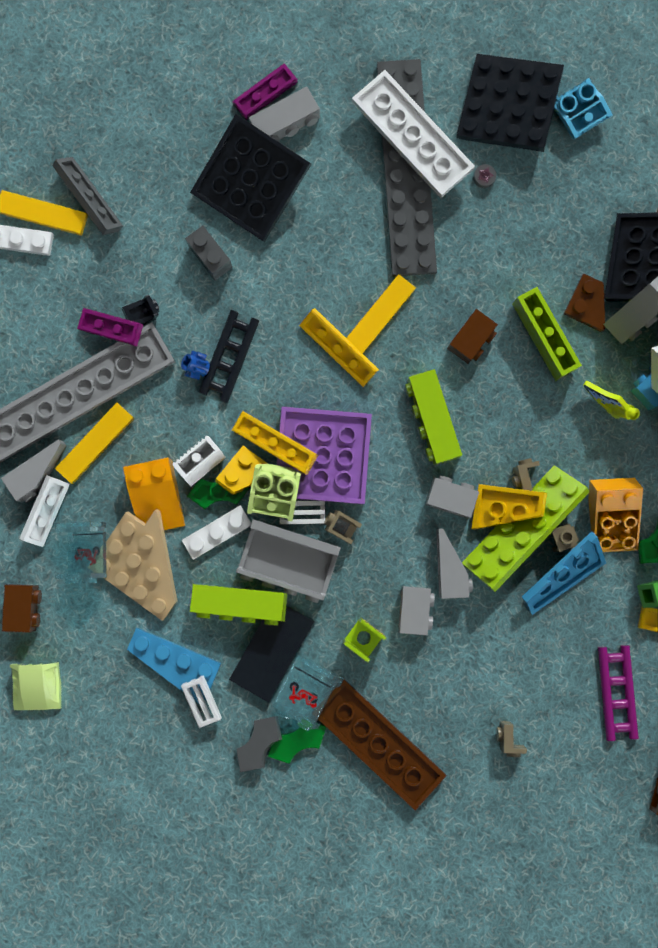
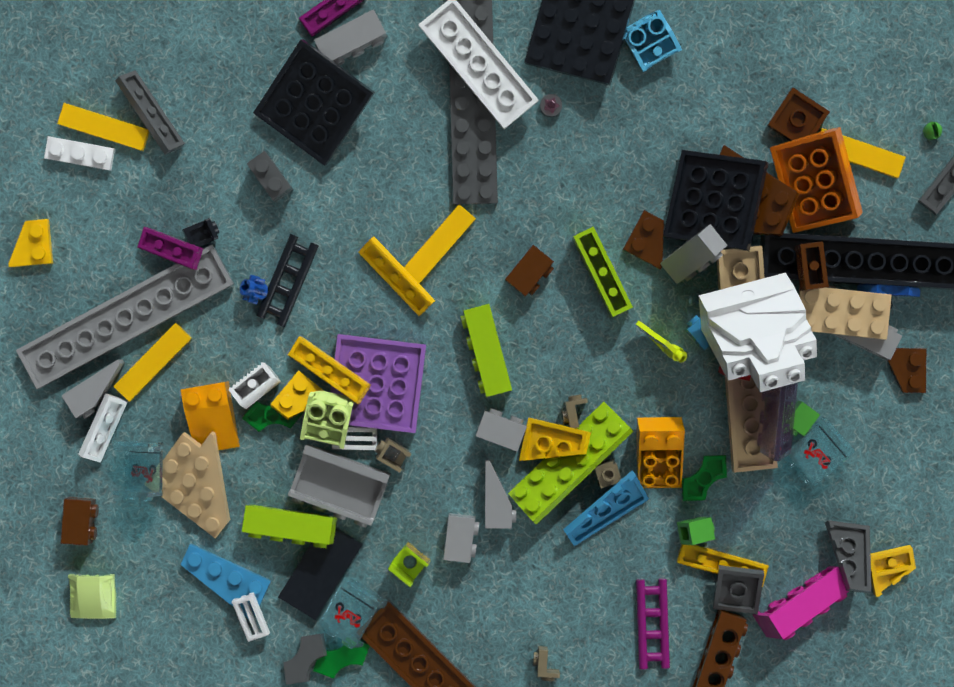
camera: 10 degrees right, 5 degrees up
(217, 532) = (270, 454): white plate -> none

